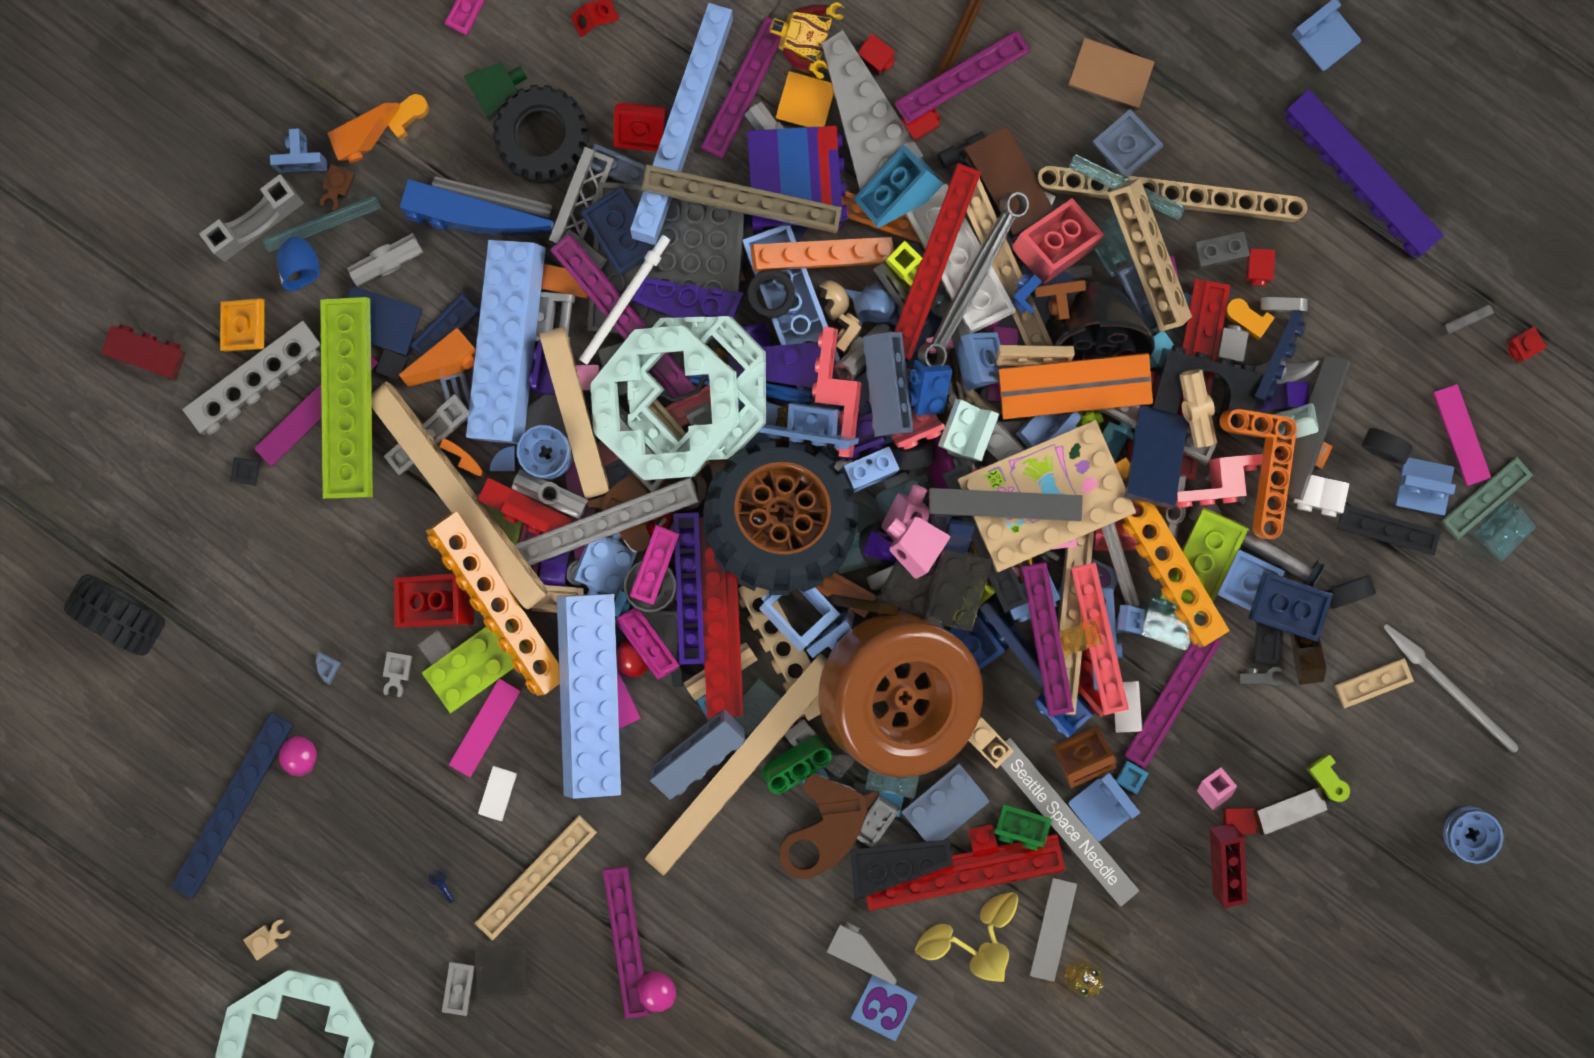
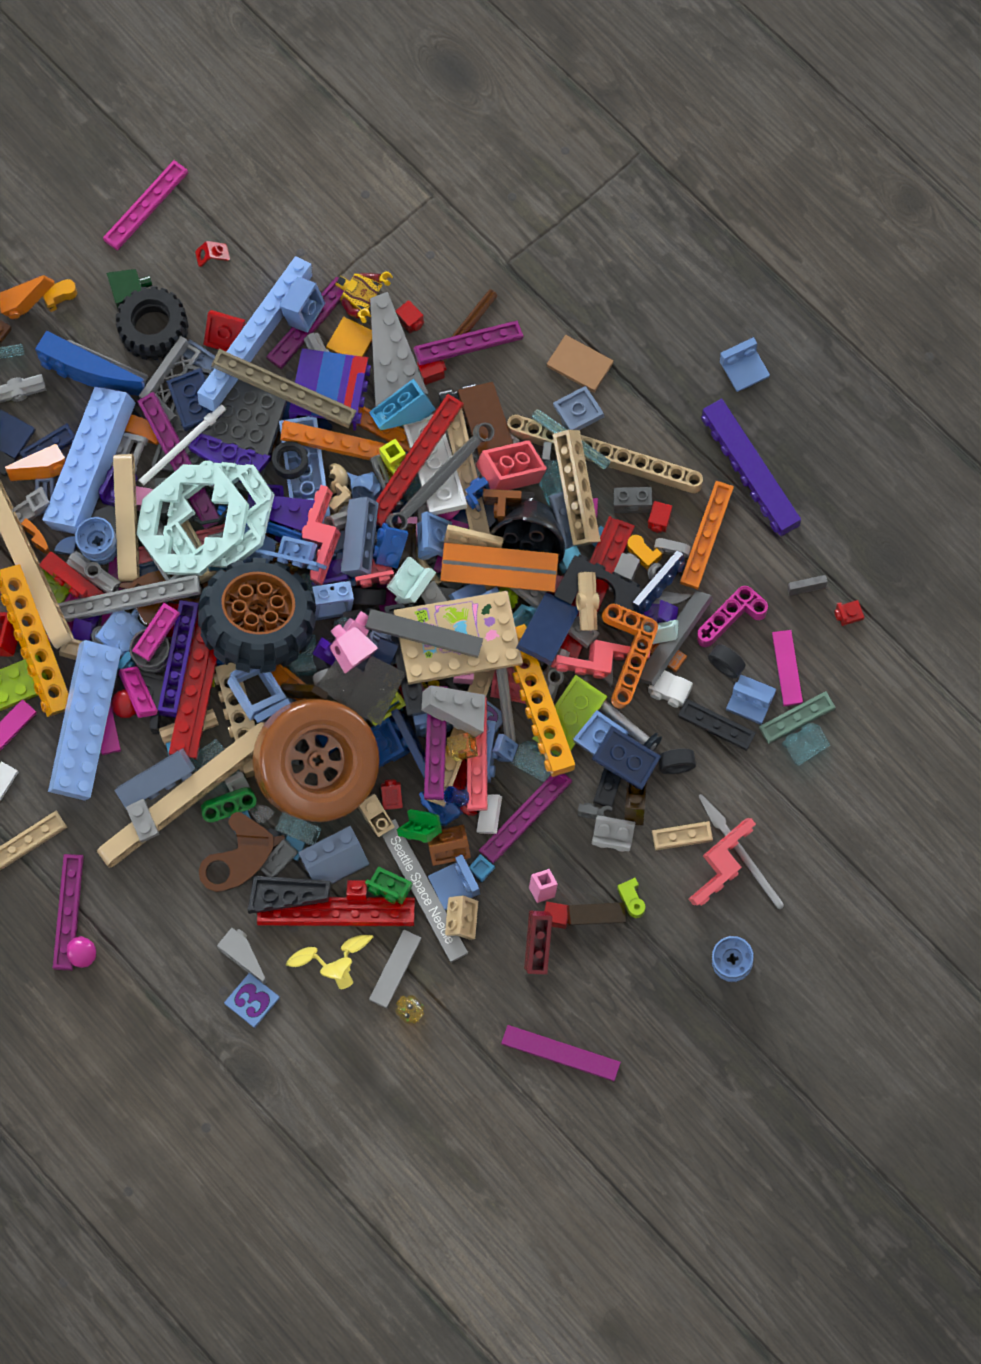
camera: 15 degrees right, 15 degrees down
(695, 813) = (142, 820): none -> light grey plate
(734, 70) = (302, 304): none -> medium blue brick
(998, 706) = (391, 794): none -> red bracket
(1047, 745) = (421, 826): none -> green bracket
(1067, 592) = (456, 707): none -> light grey wedge
(1091, 701) = (452, 795): none -> clear blue bush
(1096, 209) = (546, 452): none -> light grey tile
(1122, 849) = (461, 917): none -> tan bracket
(1269, 341) = (653, 570): none -> light grey plate
(1281, 993) = (561, 1053): none -> magenta tile
(1289, 701) = (613, 833): none -> light grey bracket
(1324, 277) = (706, 535): none -> orange plate
(1375, 386) = (729, 618): none -> dark pink beam
(1433, 710) = (722, 862): none -> coral bracket

